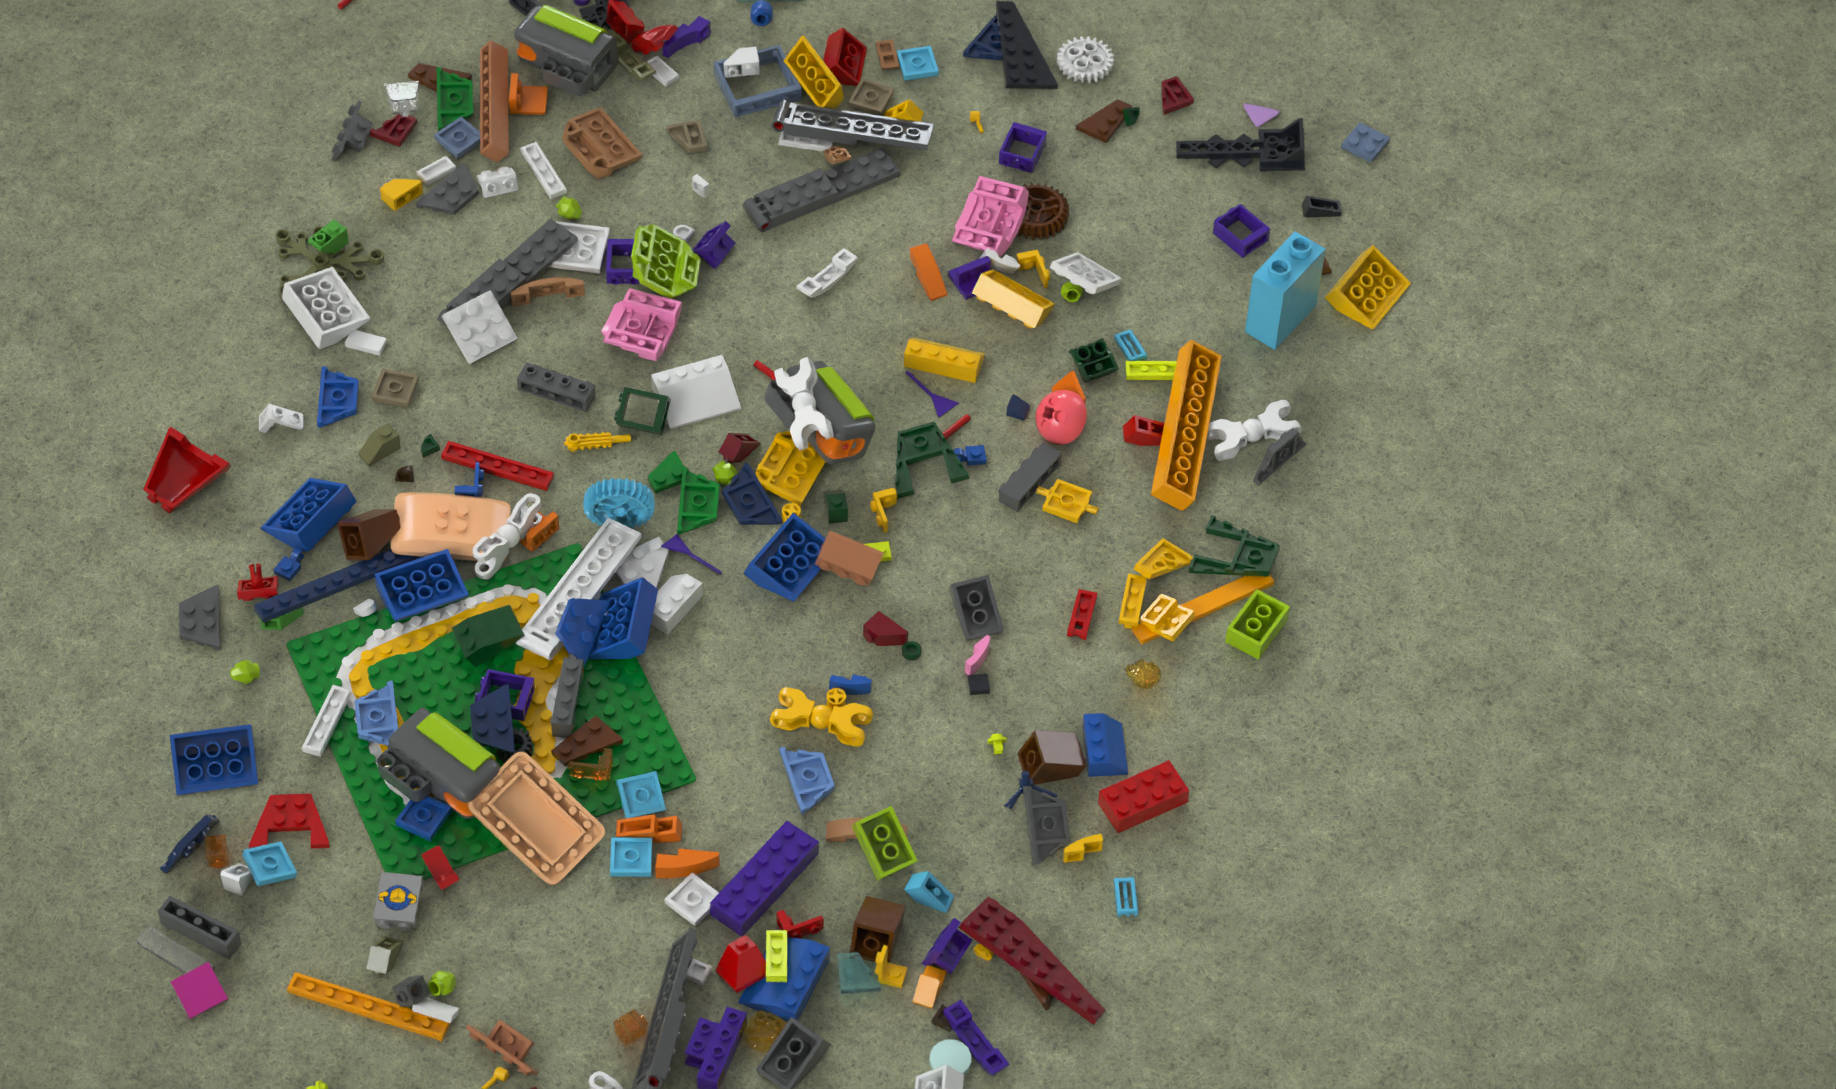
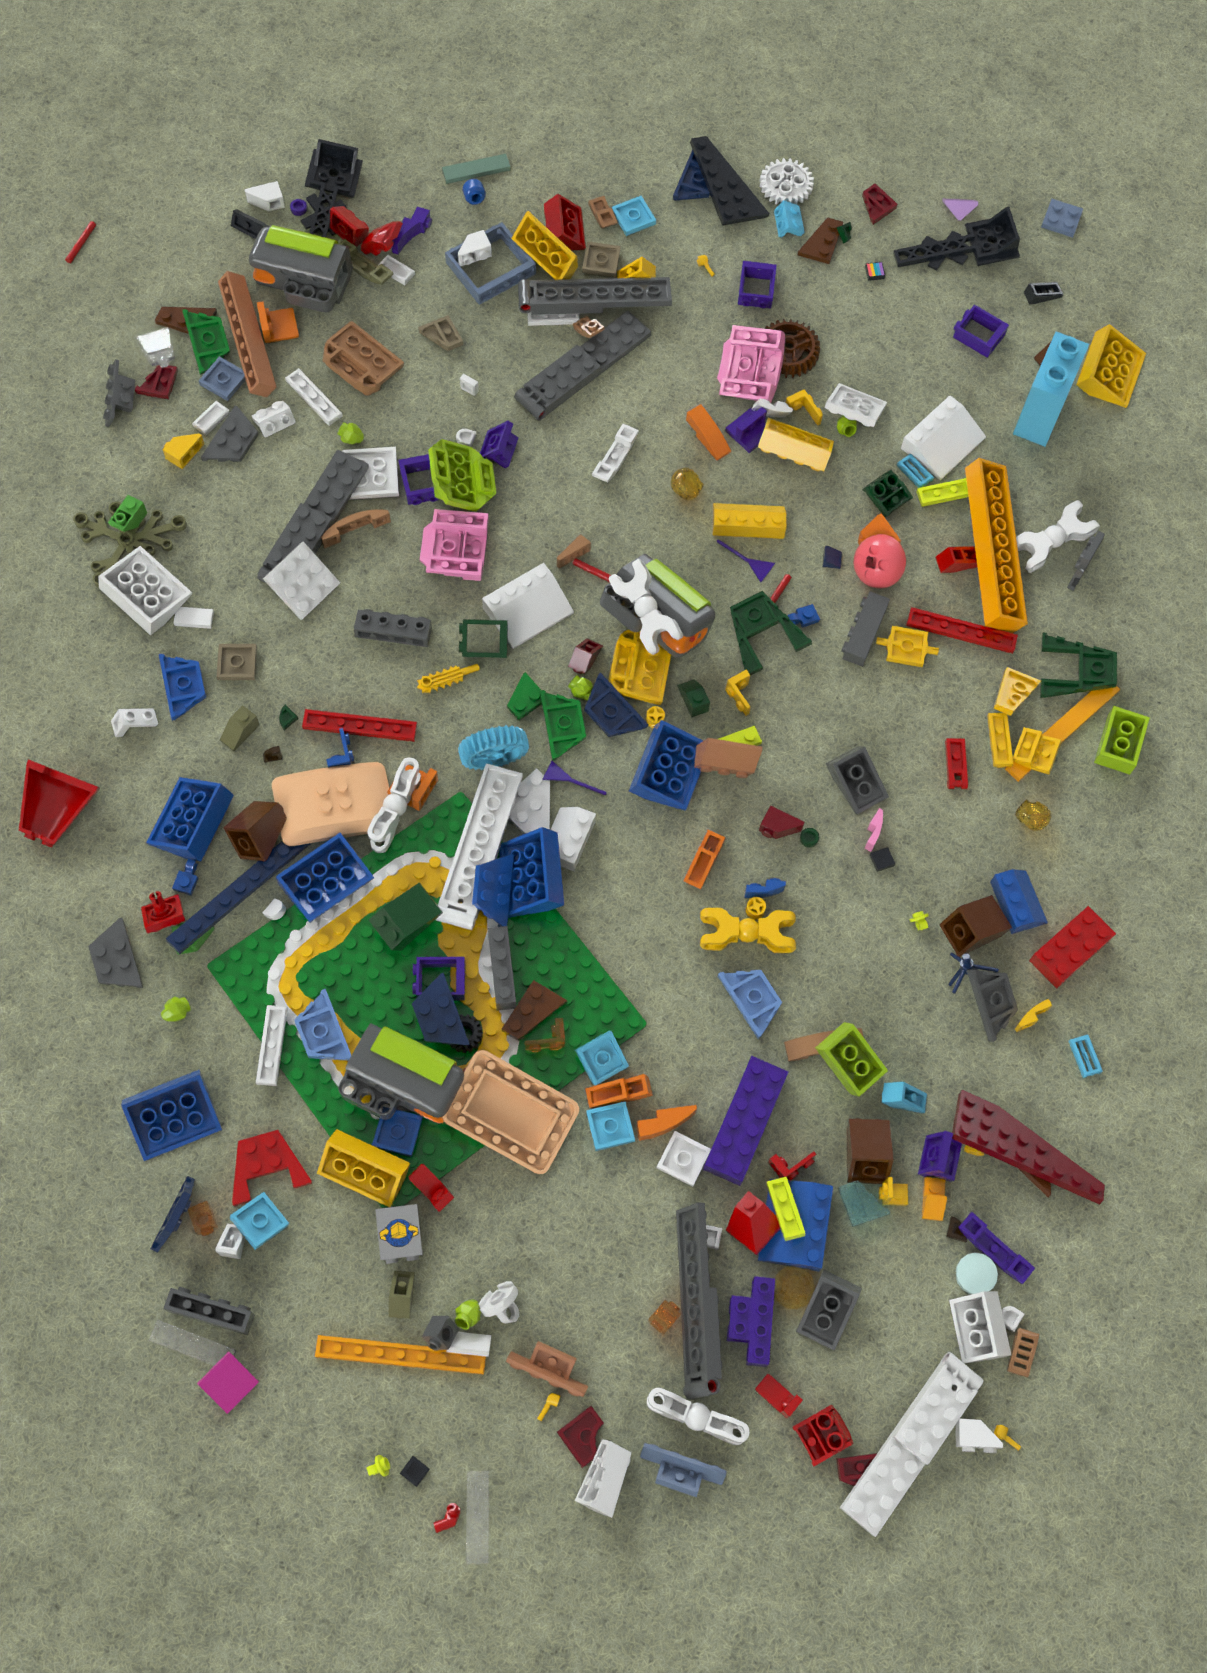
camera: 15 degrees left, 15 degrees up
(380, 838) = (363, 1168): none -> yellow slope
(476, 979) = (498, 1302): none -> white tile
(760, 351) = (575, 550): none -> medium nougat slope
(800, 647) = (704, 859): none -> orange slope
(890, 313) = (686, 483): none -> clear yellow hair
(1077, 93) = (788, 219): none -> medium azure bracket
(1128, 497) = (962, 630): none -> red plate
(1151, 157) = (875, 271): none -> tile
(1168, 320) = (943, 438): none -> white slope

